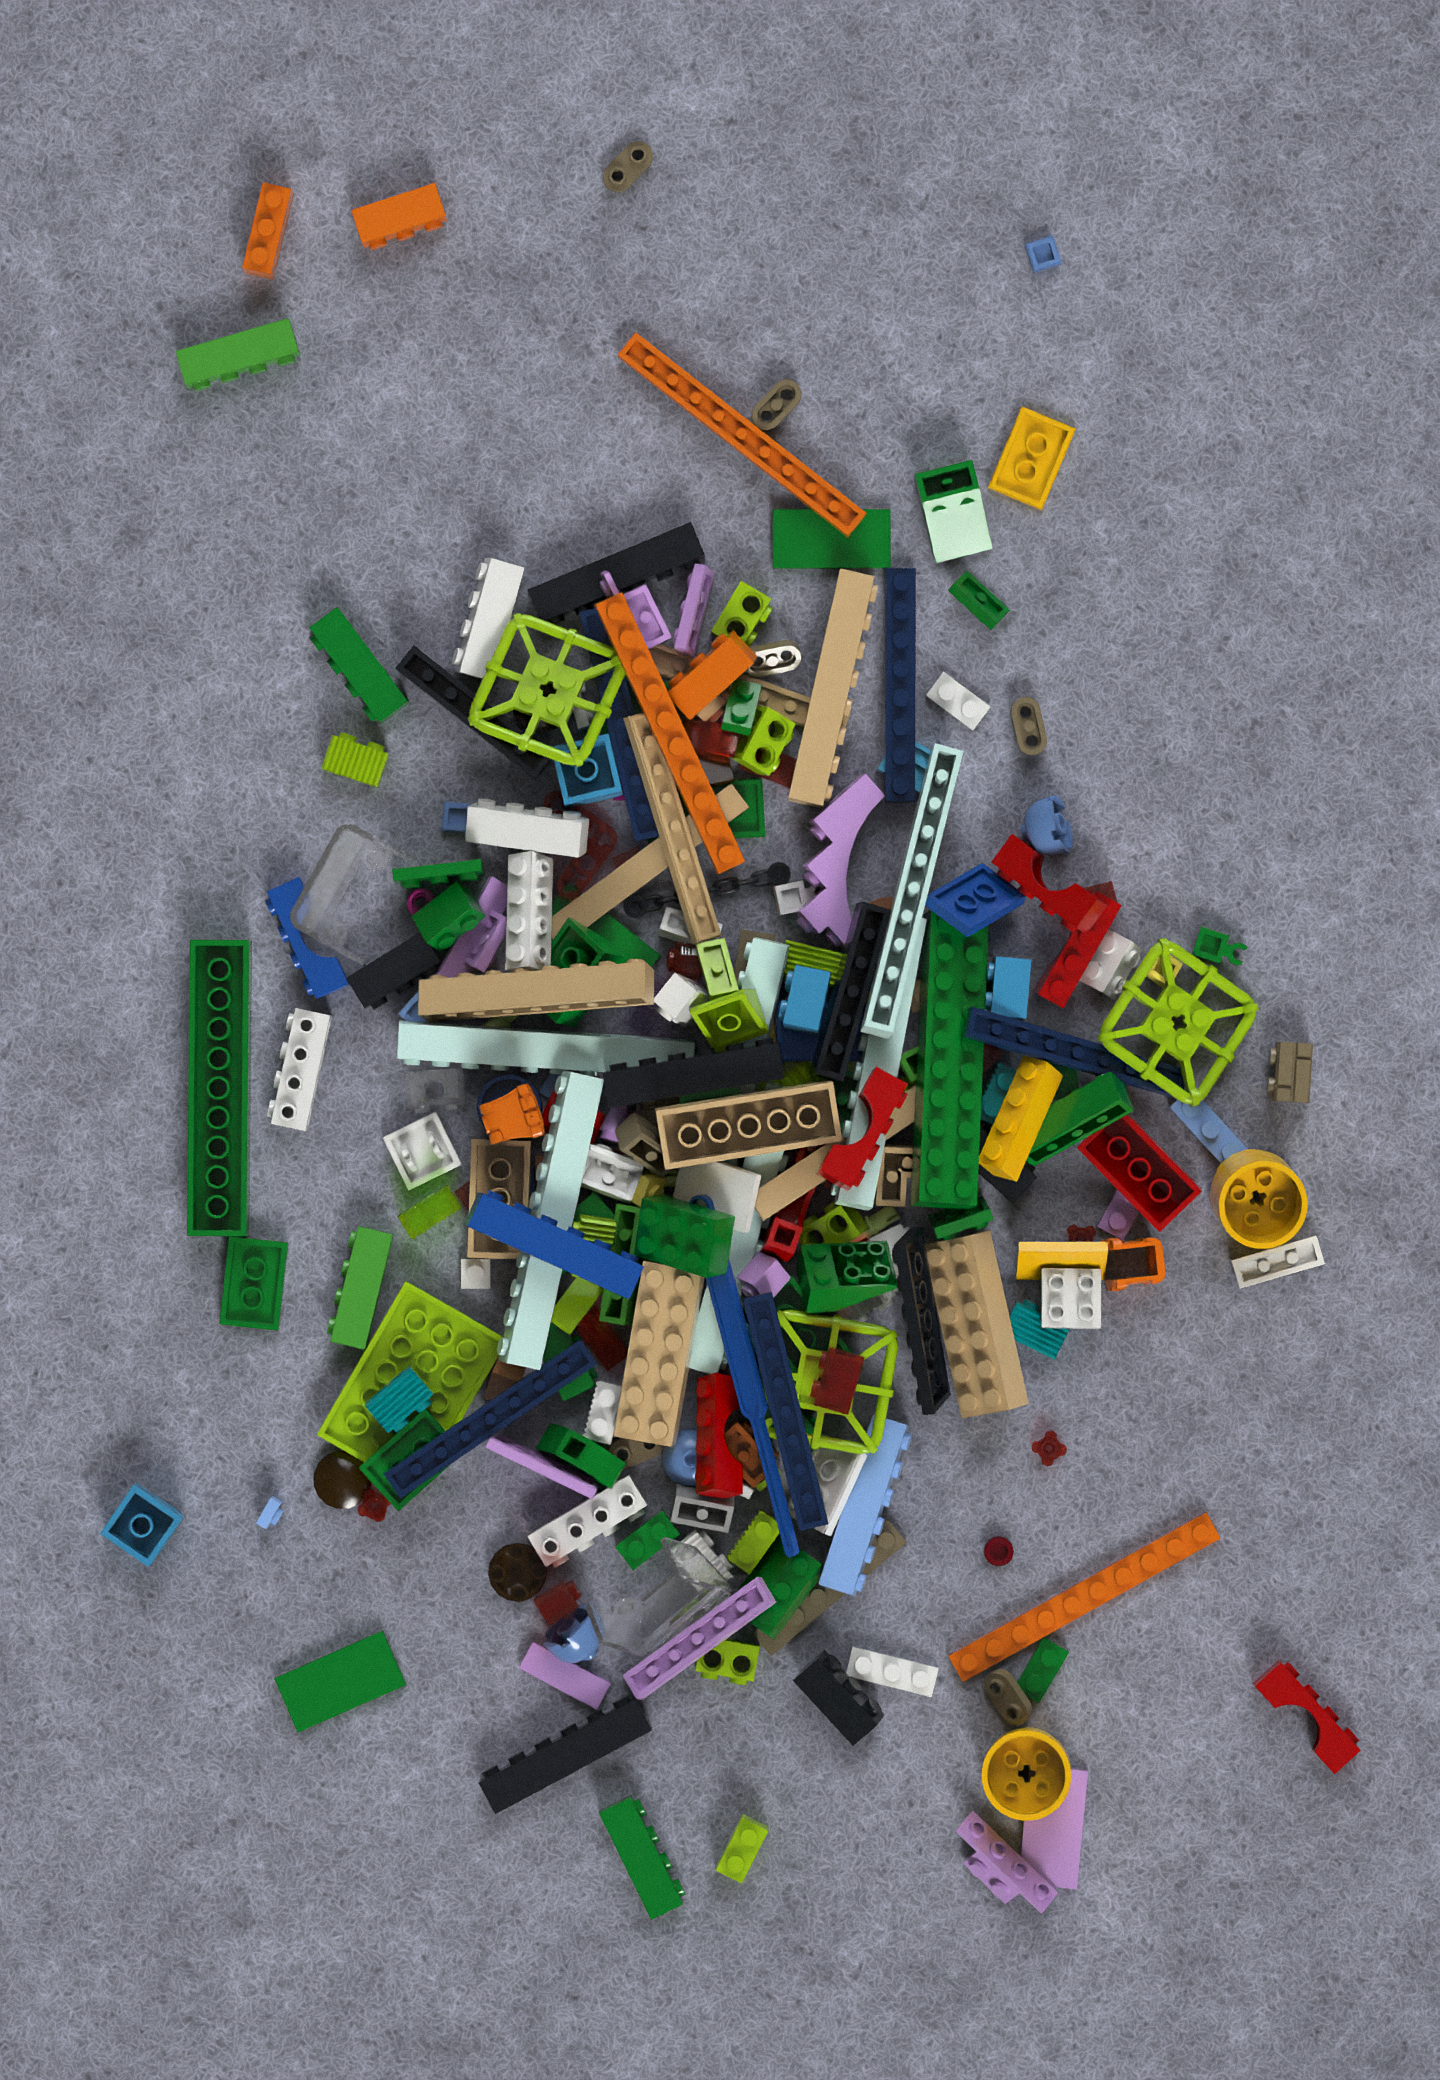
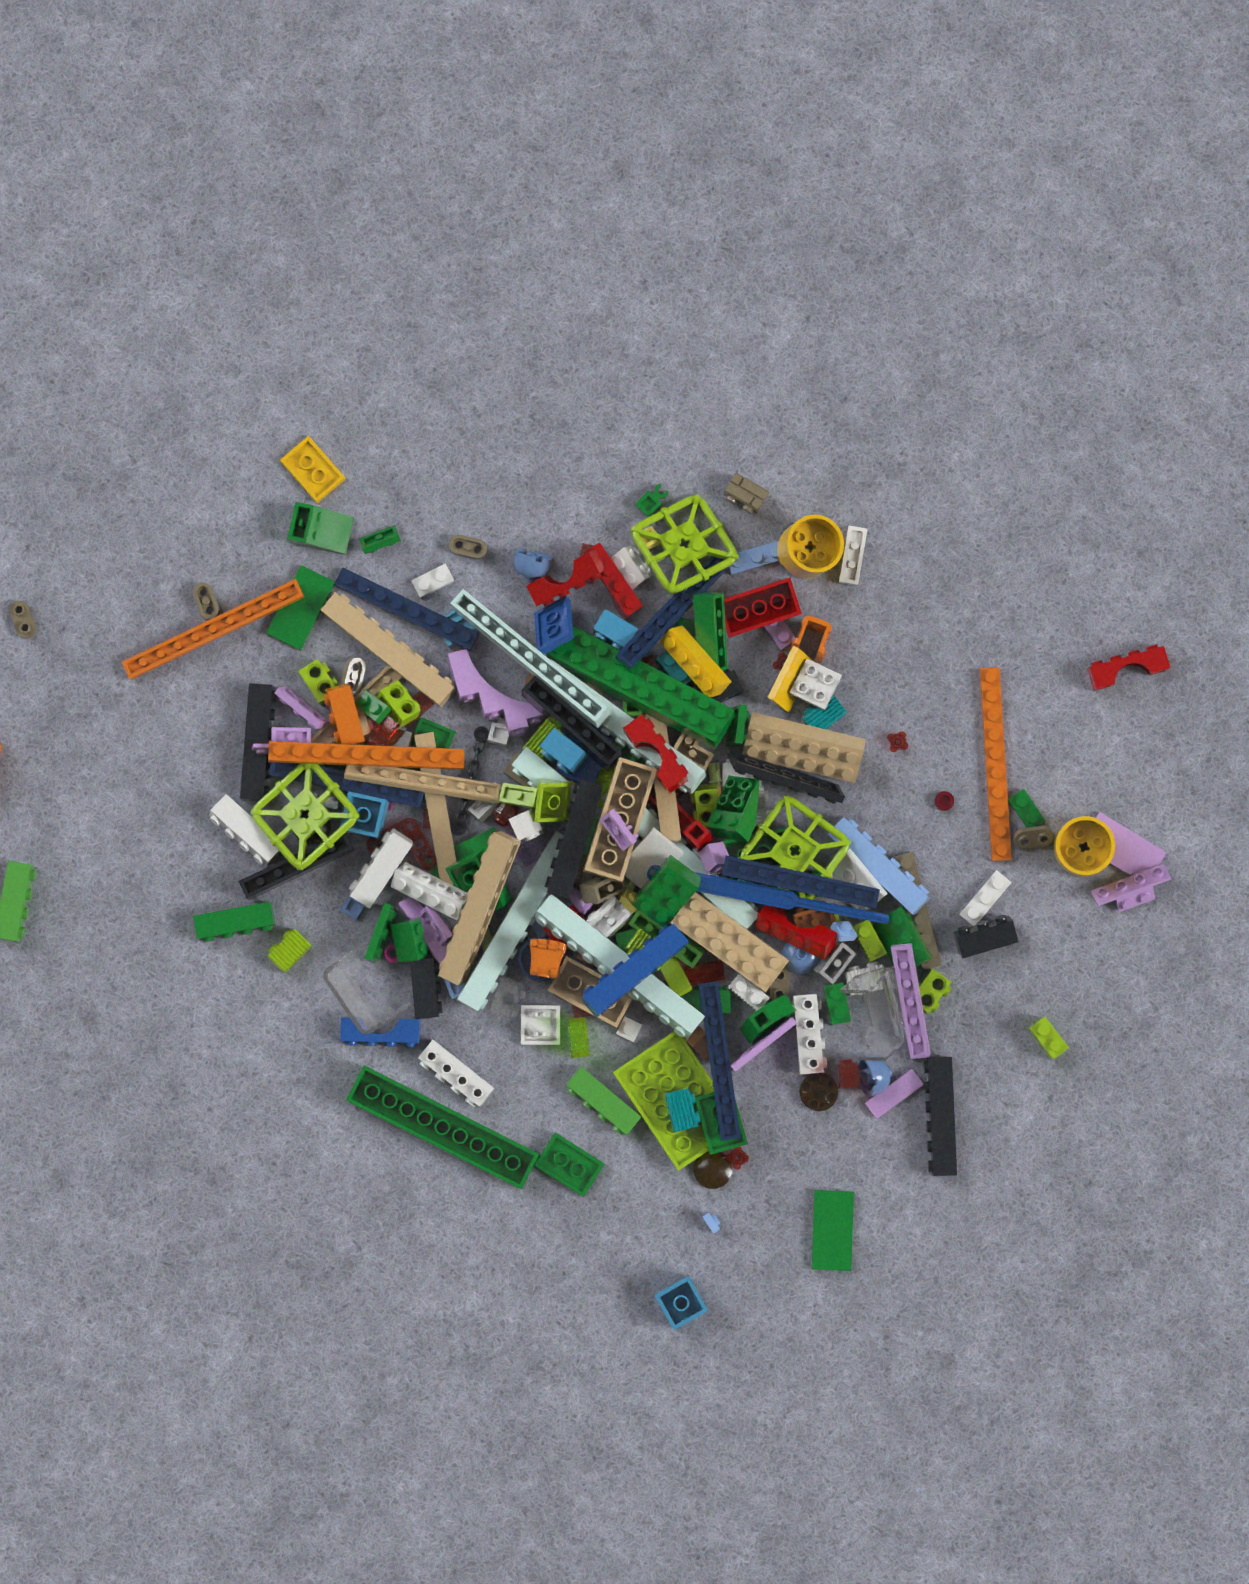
camera: 60 degrees left, 5 degrees down
(641, 1856) = (1024, 1100): green brick -> none
(731, 1130) = (616, 827): none -> lavender plate
(750, 1502) = (844, 931): none -> light blue plate
(837, 1380) = (797, 842): clear red brick -> none
(1043, 254) = (197, 405): medium blue tile -> none

